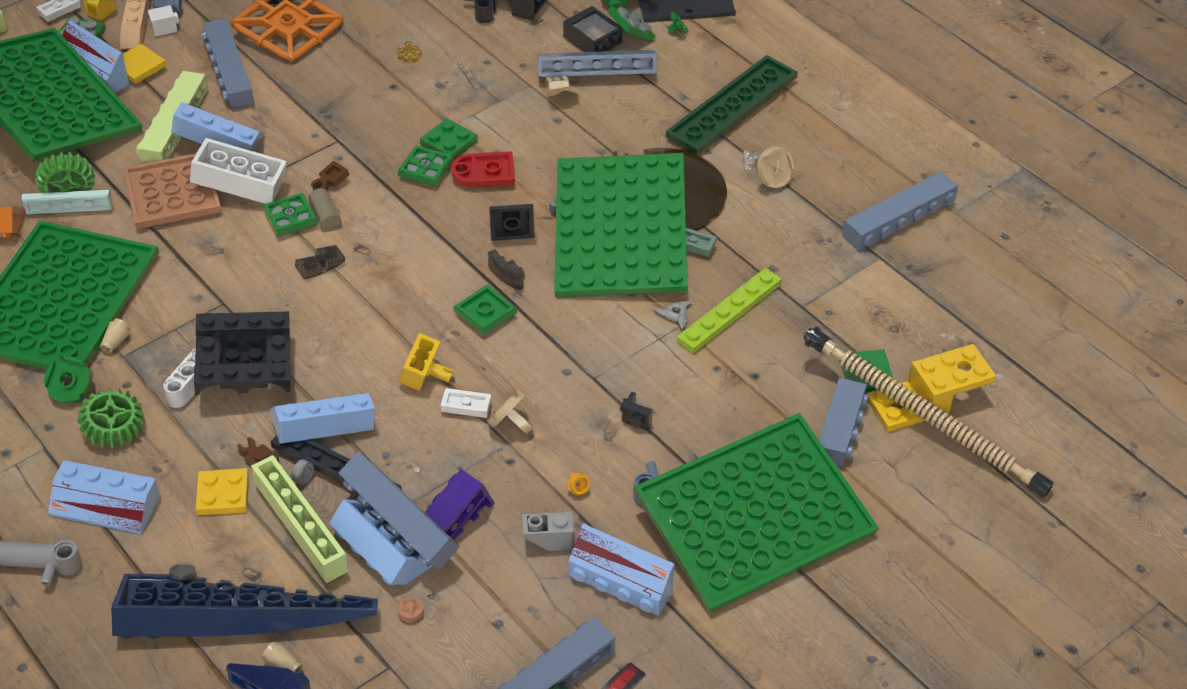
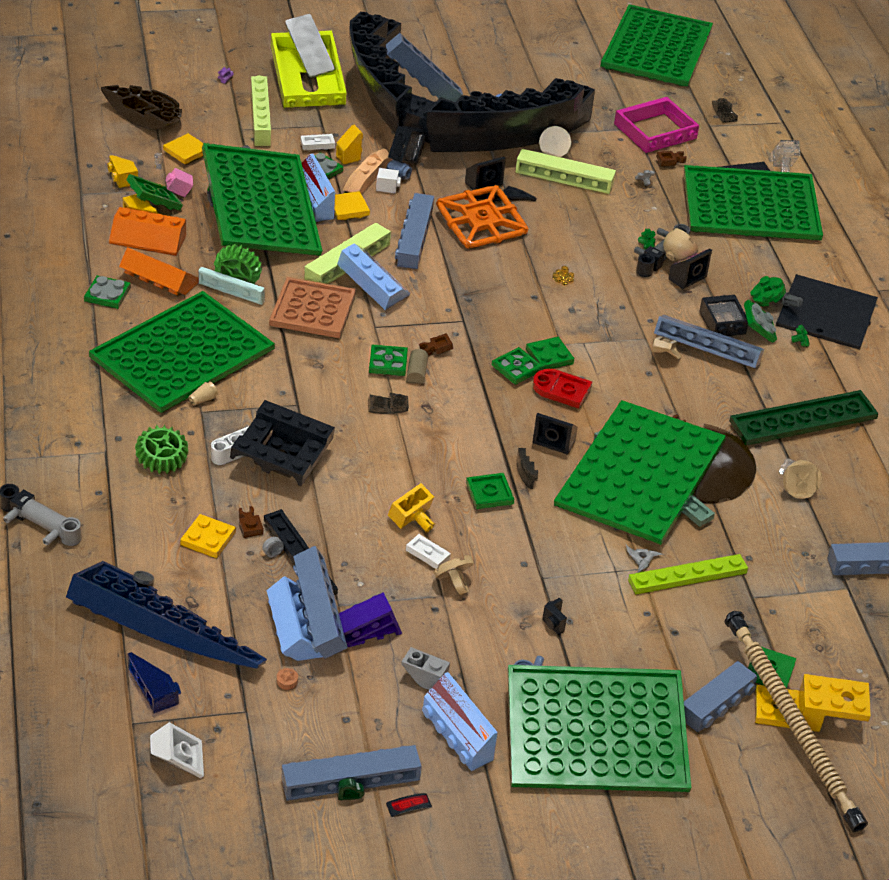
camera: 25 degrees right, 5 degrees down
(63, 369) = (149, 401): green plate -> none
(103, 497) = (122, 502): light blue slope -> none
(238, 171) = (367, 311): white brick -> none
(279, 656) = (171, 665): tan cone -> none
(300, 519) = (247, 578): yellowish green brick -> none
(323, 418) = (311, 514): light blue slope -> none
(584, 484) = (467, 646): light orange plate -> none

